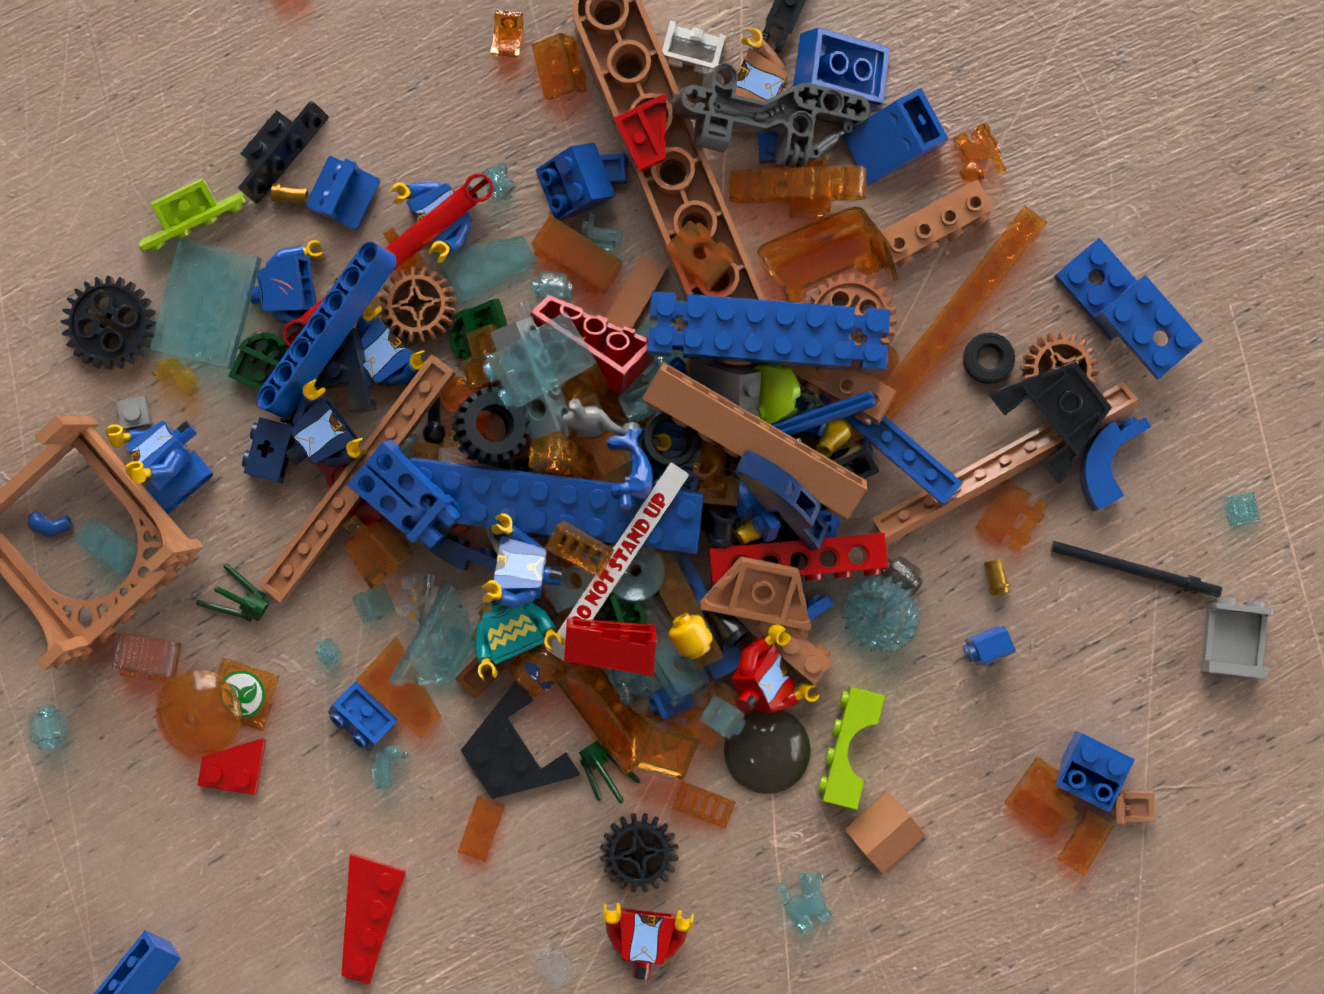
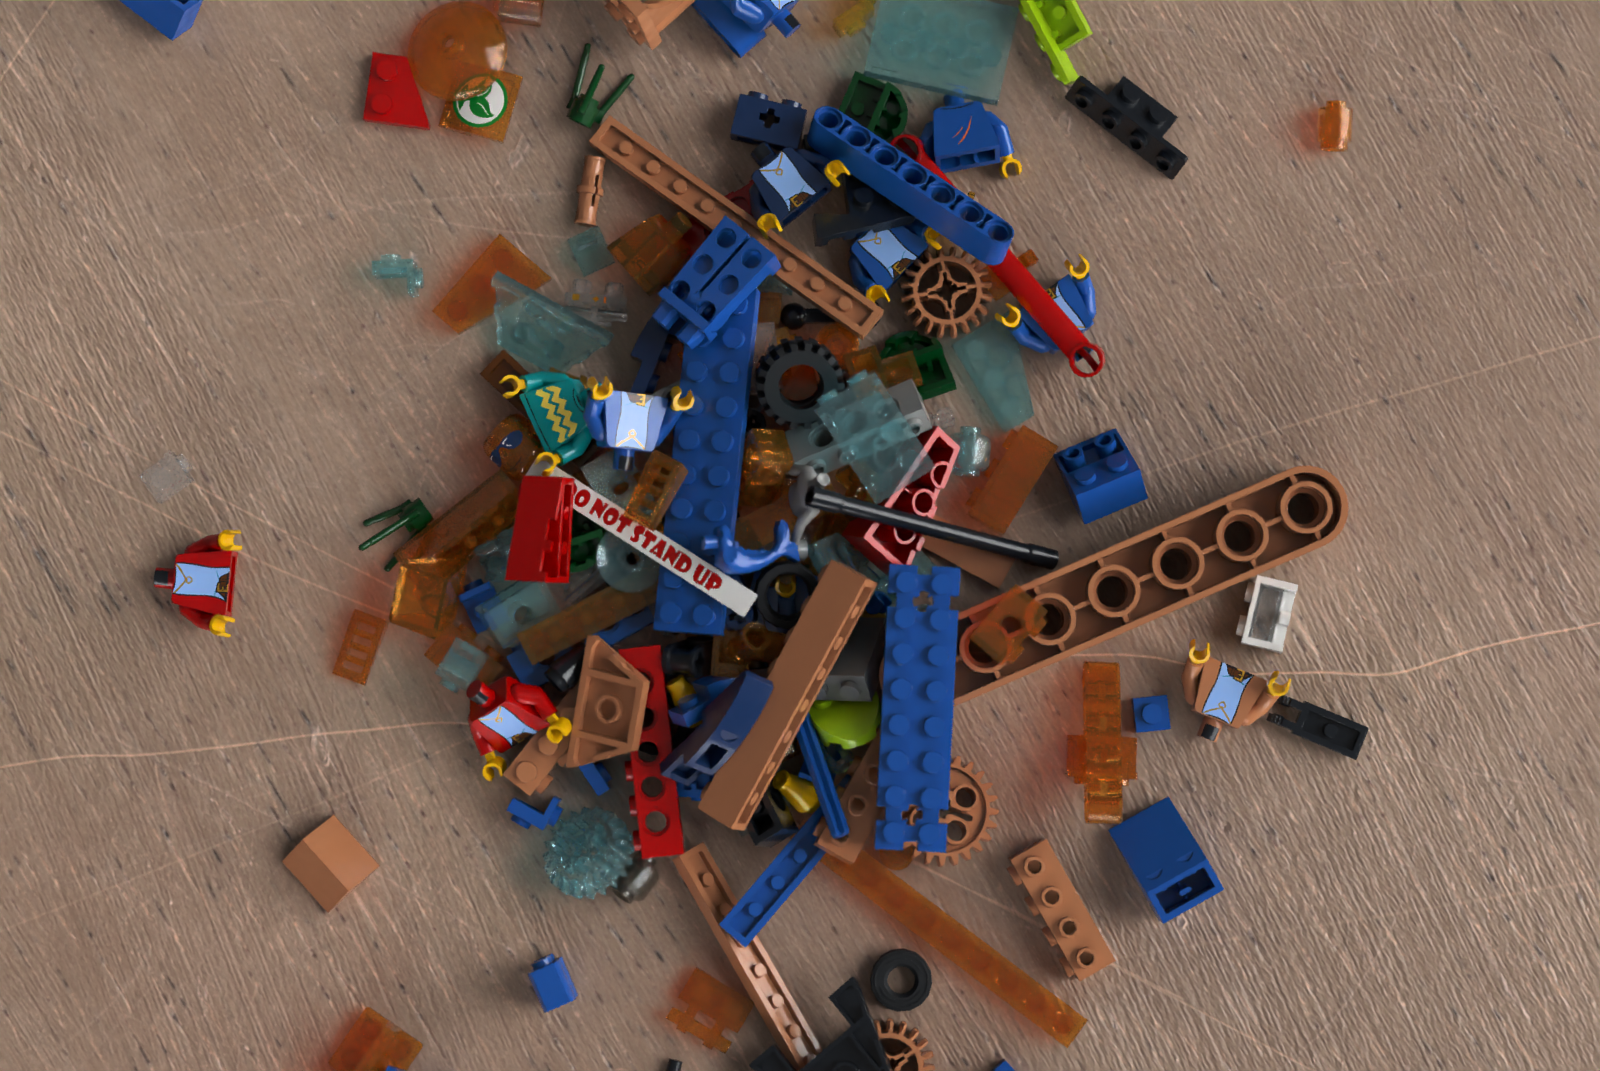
camera: 90 degrees right, 0 degrees up
(288, 194) = (1076, 135): pearl gold pin -> none
(322, 602) = (590, 191): none -> nougat pin
(328, 652) = (532, 199): clear light blue plate -> none
(343, 192) = (1080, 199): blue bracket -> none
(361, 716) = (456, 241): blue bracket -> none
(369, 909) = (232, 257): red wing -> none
(481, 828) = (328, 385): clear orange plate -> none
(500, 180) = (1100, 384): clear light blue wheel -> none
(503, 758) = (412, 408): black wing -> none
(507, 33) = (1277, 390): clear orange bracket -> none
(559, 66) = (1241, 453): clear orange bracket -> none
(594, 394) = (837, 503): none -> black piece
(605, 238) = (1032, 514): clear light blue bracket -> none
(615, 167) = (1120, 523): blue tile -> none
(626, 854) = (300, 557): black gear -> none
(645, 132) = (1155, 556): red wing -> none
(690, 636) = (555, 624): yellow head -> none
(724, 110) = (1185, 648): dark grey beam -> none
(774, 773) = (418, 748): clear smoke dish -> none
(806, 904) = (246, 776): clear light blue animal -> none
(824, 250) = (1024, 773): clear orange windscreen -> none
(842, 63) = (1250, 794): blue slope -> none
(847, 666) = (525, 814): none -> blue bracket
(859, 710) = (474, 831): lime arch -> none
(978, 150) = (1151, 957): clear orange animal -> none
(997, 577) = (635, 993): pearl gold pin -> none

